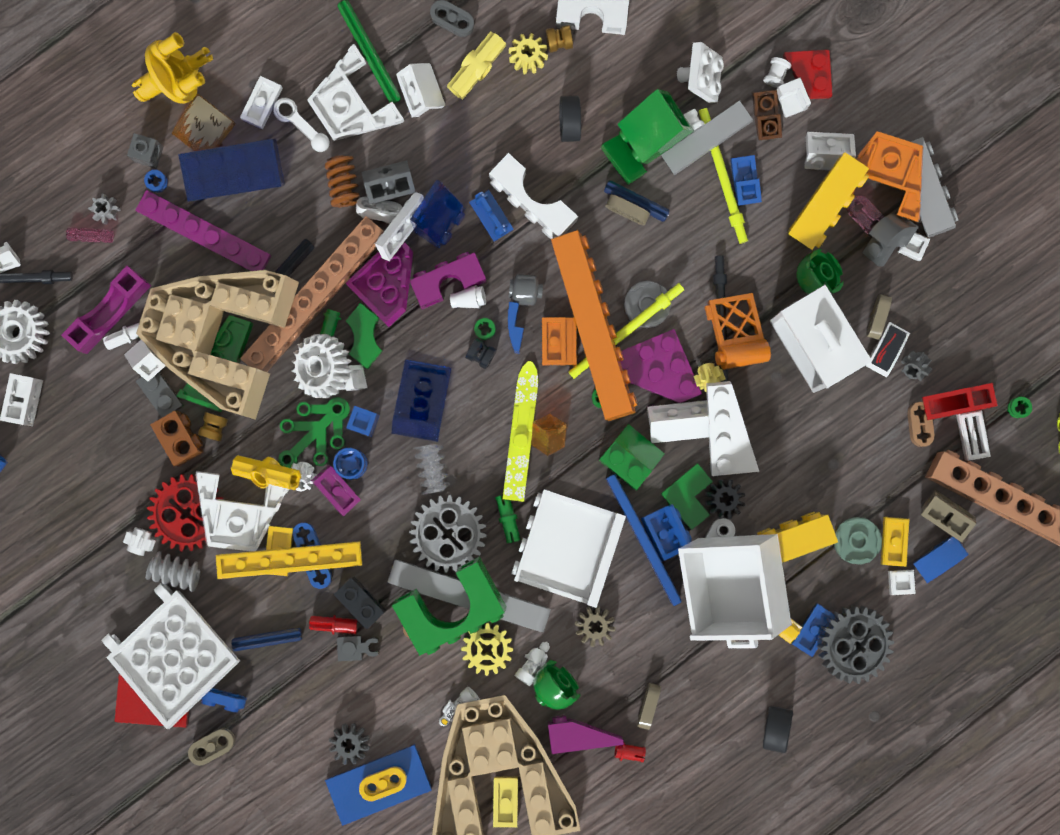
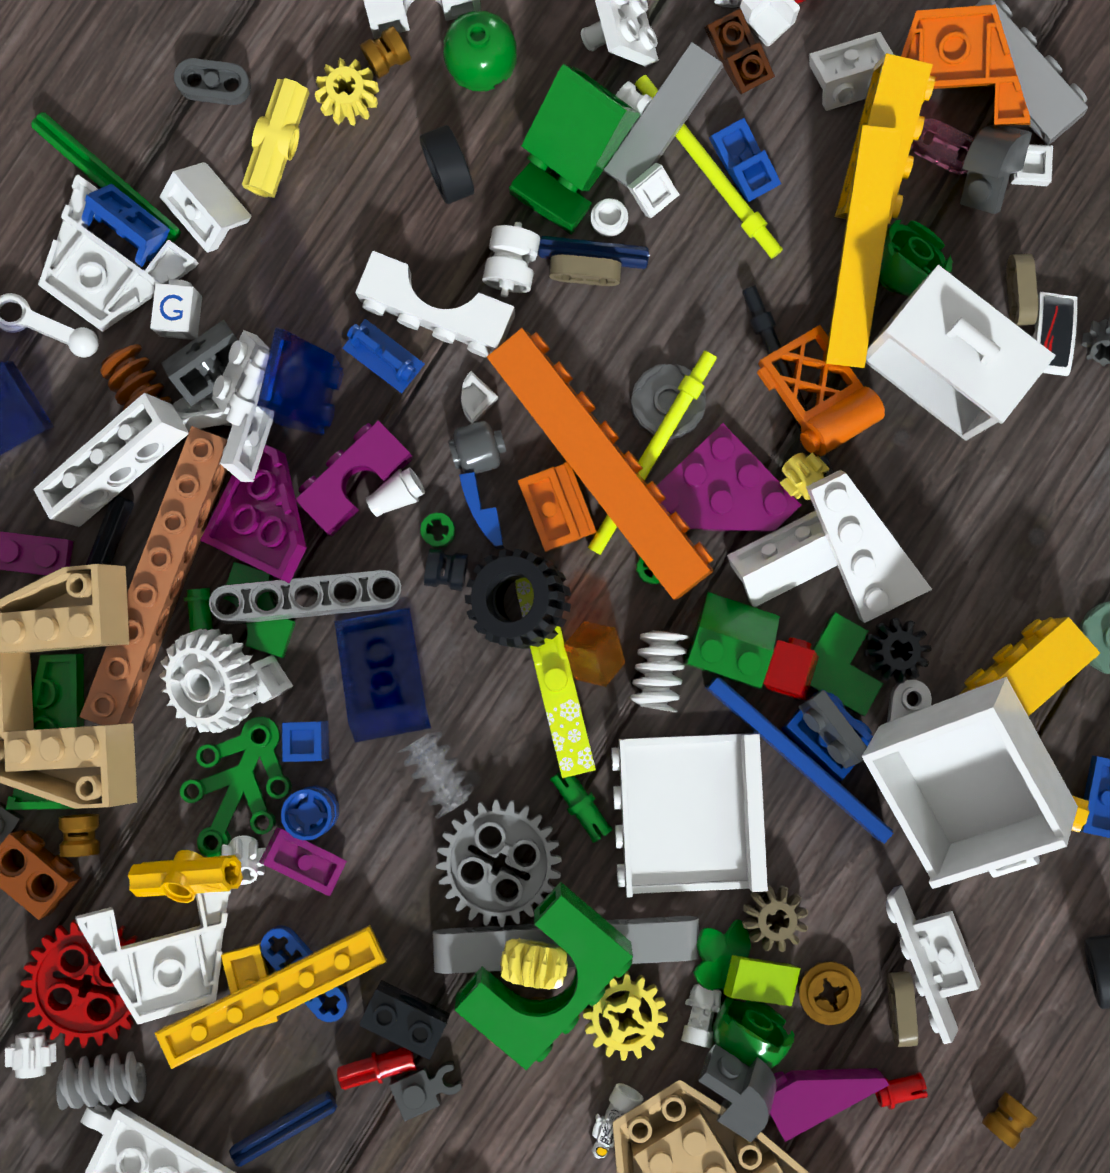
camera: 20 degrees left, 0 degrees up
(312, 218) = (111, 460): none -> white brick
(373, 82) = (127, 220): none -> blue hinge
(381, 144) = (176, 310): none -> white brick
(382, 341) = (288, 607): none -> light grey beam
(405, 199) = (244, 372): none -> white plate
(446, 596) = (533, 964): none -> light yellow gear
(503, 373) = (489, 593): none -> black tyre
(536, 260) = (476, 398): none -> white tile
(541, 713) = (745, 1089): none -> dark grey brick
(556, 636) = (716, 952): none -> green plate
(573, 658) = (761, 981): none -> lime tile
(582, 457) = (659, 670): none -> white piece
(584, 191) = (513, 252): none -> white wheel
(614, 58) = (479, 50): none -> green cylinder
(618, 689) = (846, 999): none -> pearl gold gear
(653, 184) = (609, 217): none -> white plate
(659, 485) = (791, 668): none -> red brick
(667, 521) = (826, 719): none -> dark grey plate
(680, 684) = (938, 958): none -> white bracket
(685, 178) = (653, 190): none -> white tile
(686, 793) = (1007, 1129): none -> pearl gold wheel
(791, 257) = (863, 245): none -> yellow tile

